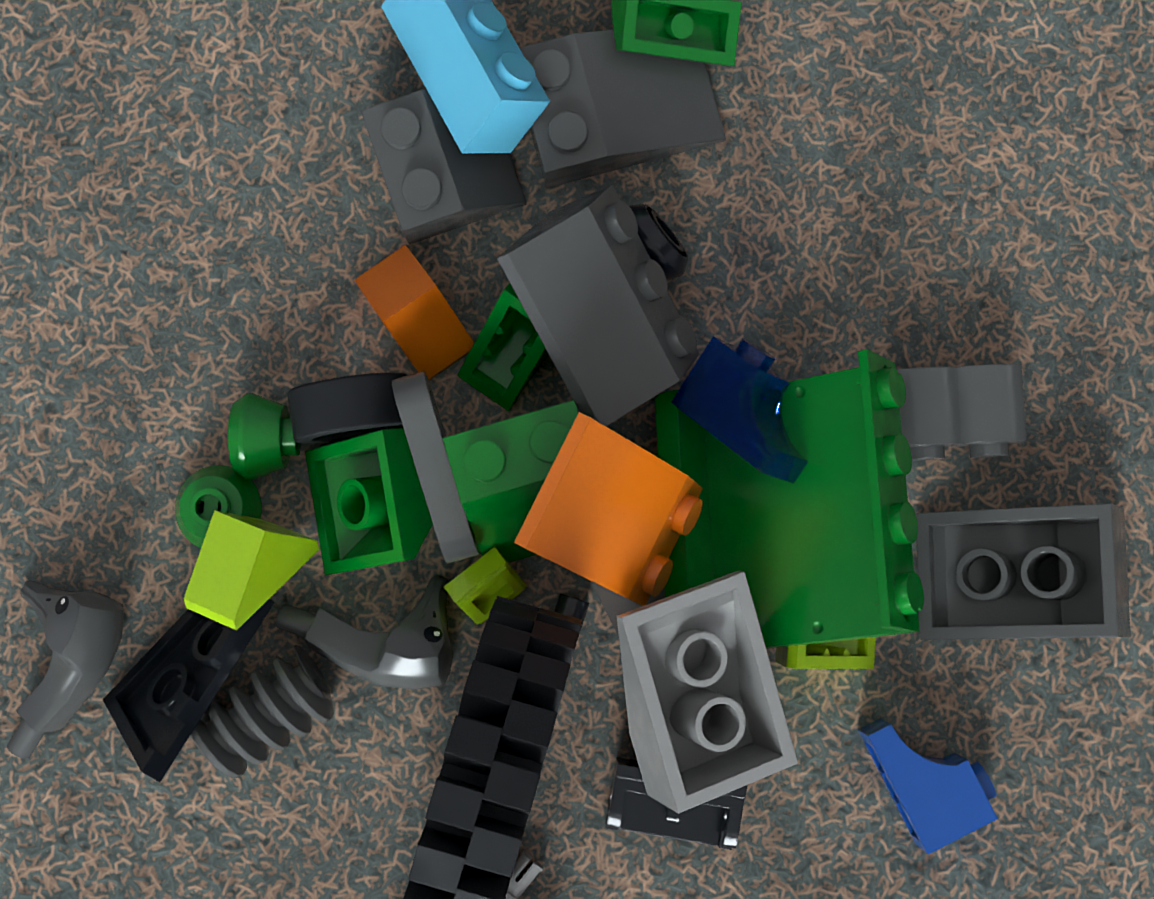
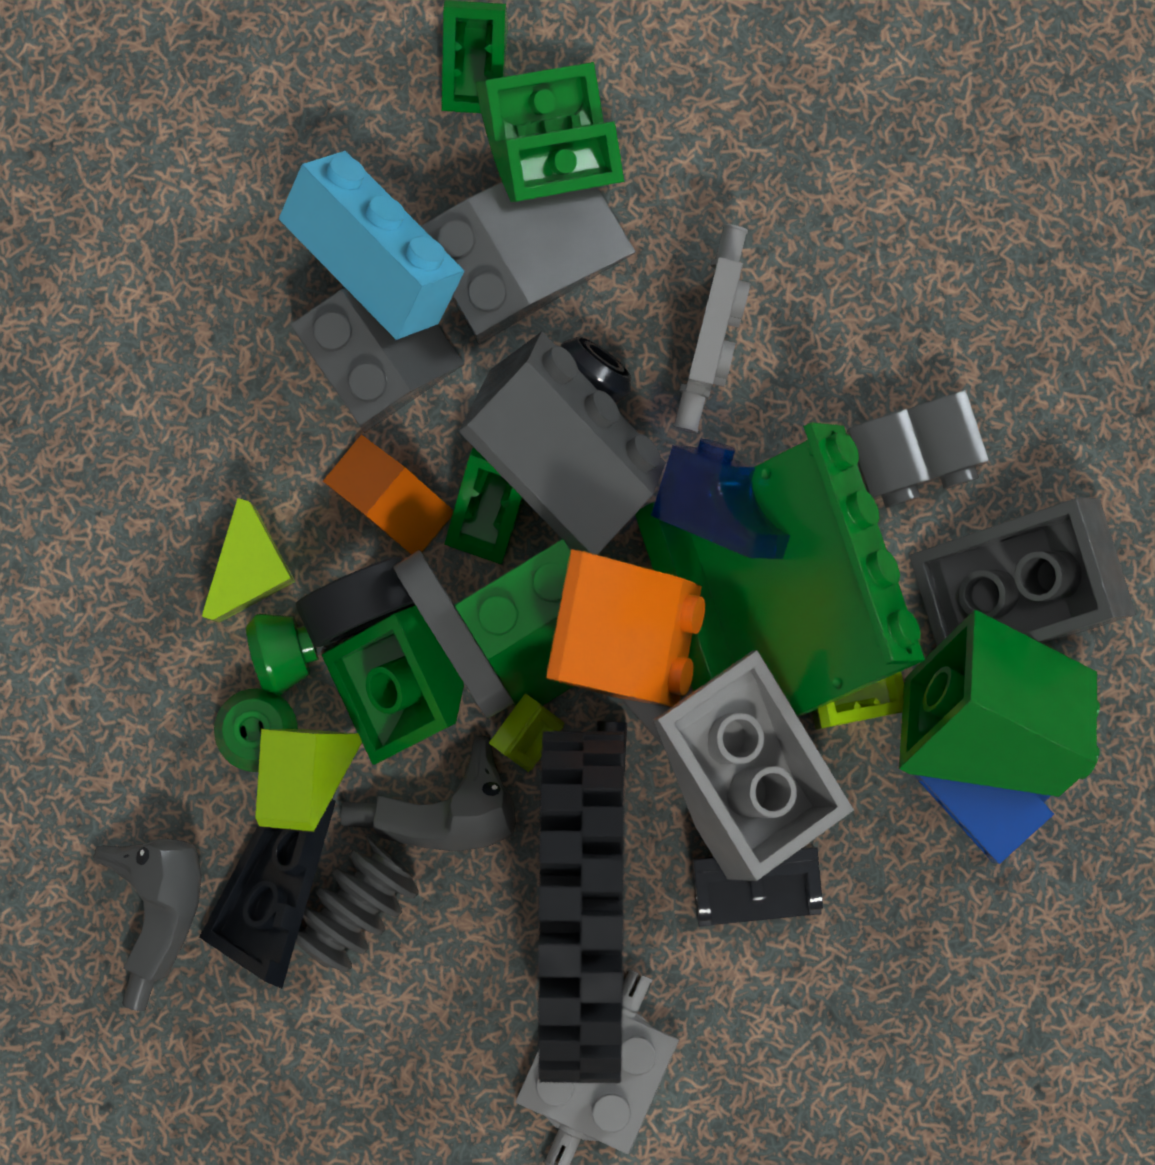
camera: 10 degrees left, 0 degrees up
(253, 342) = (247, 567): none -> lime slope
(799, 217) = (723, 308): none -> light grey plate
(971, 701) = (1000, 712): none -> green slope

